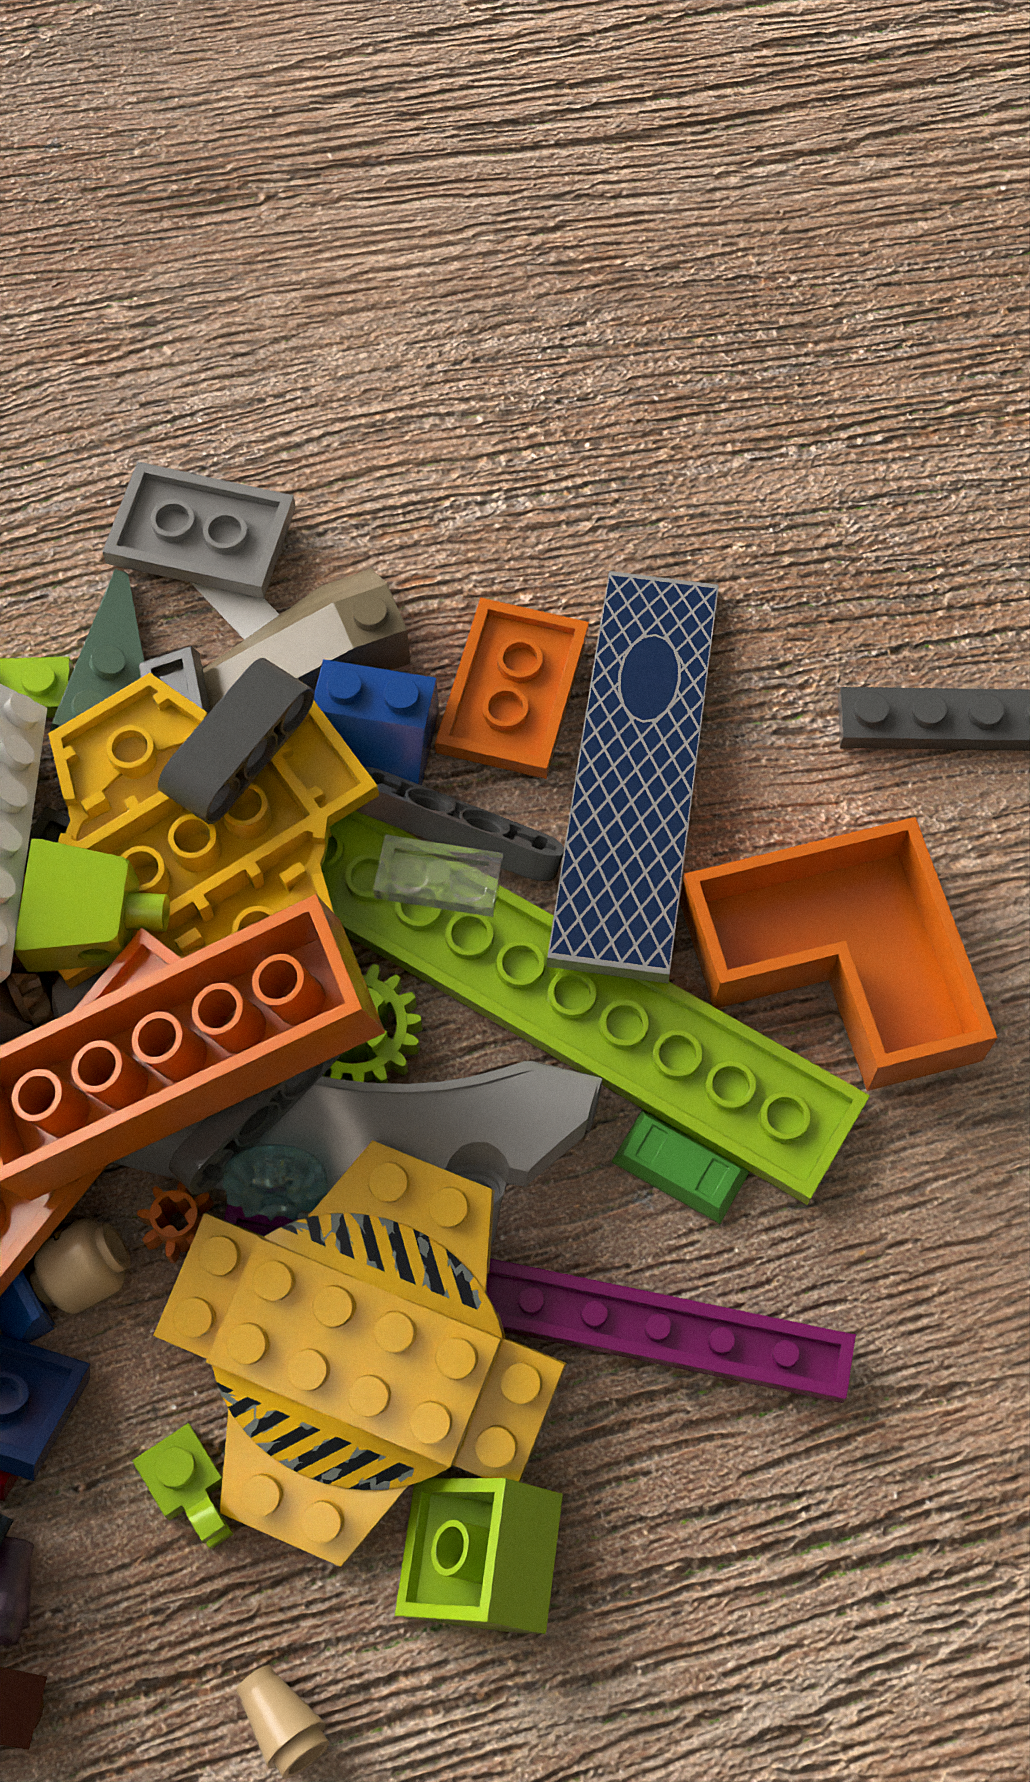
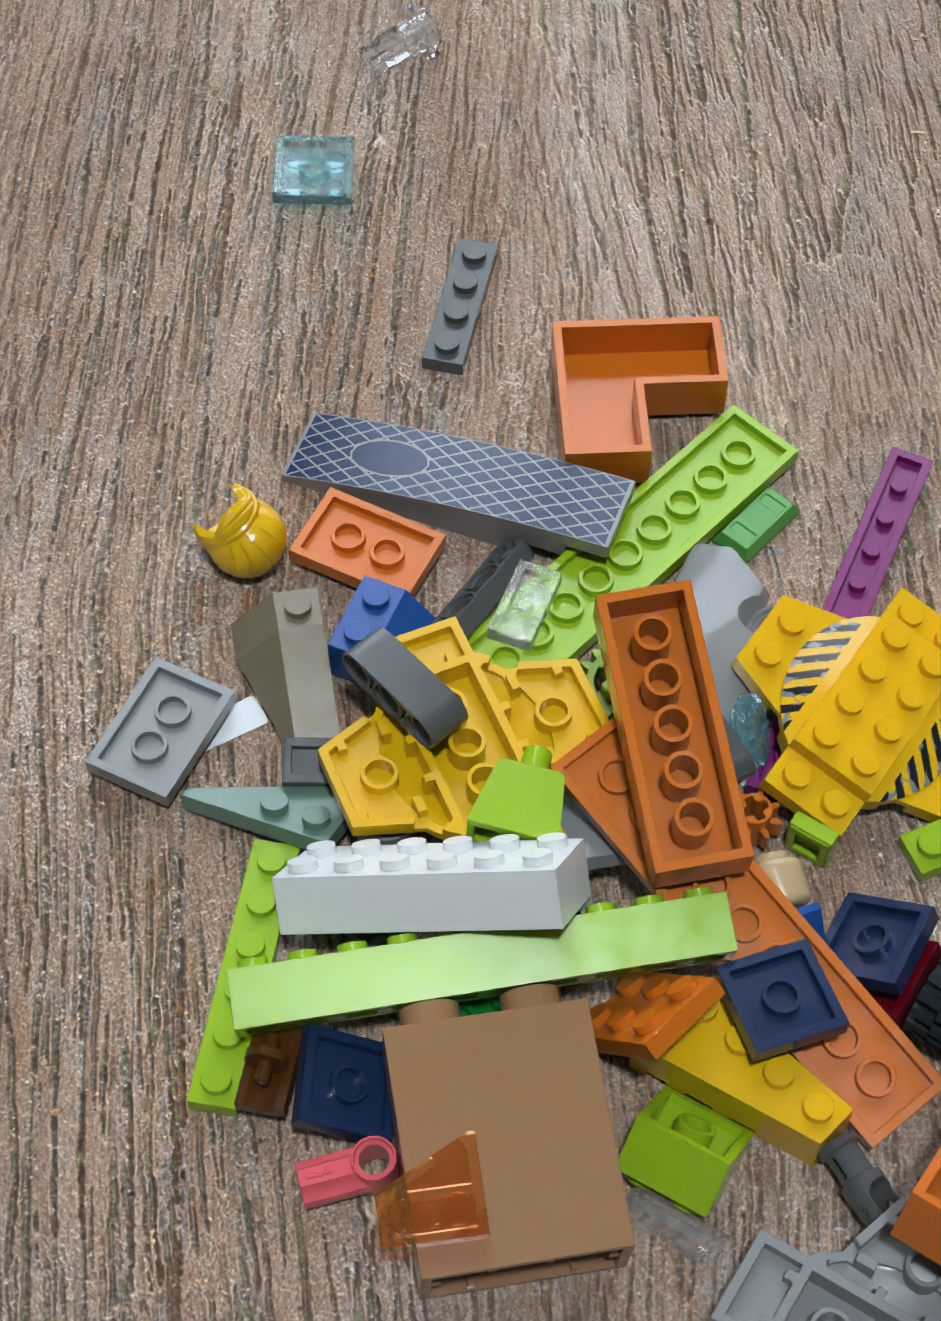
camera: 80 degrees left, 10 degrees down
(153, 1299) = (811, 839): none -> lime tile
(482, 544) = (247, 538): none -> yellow hair

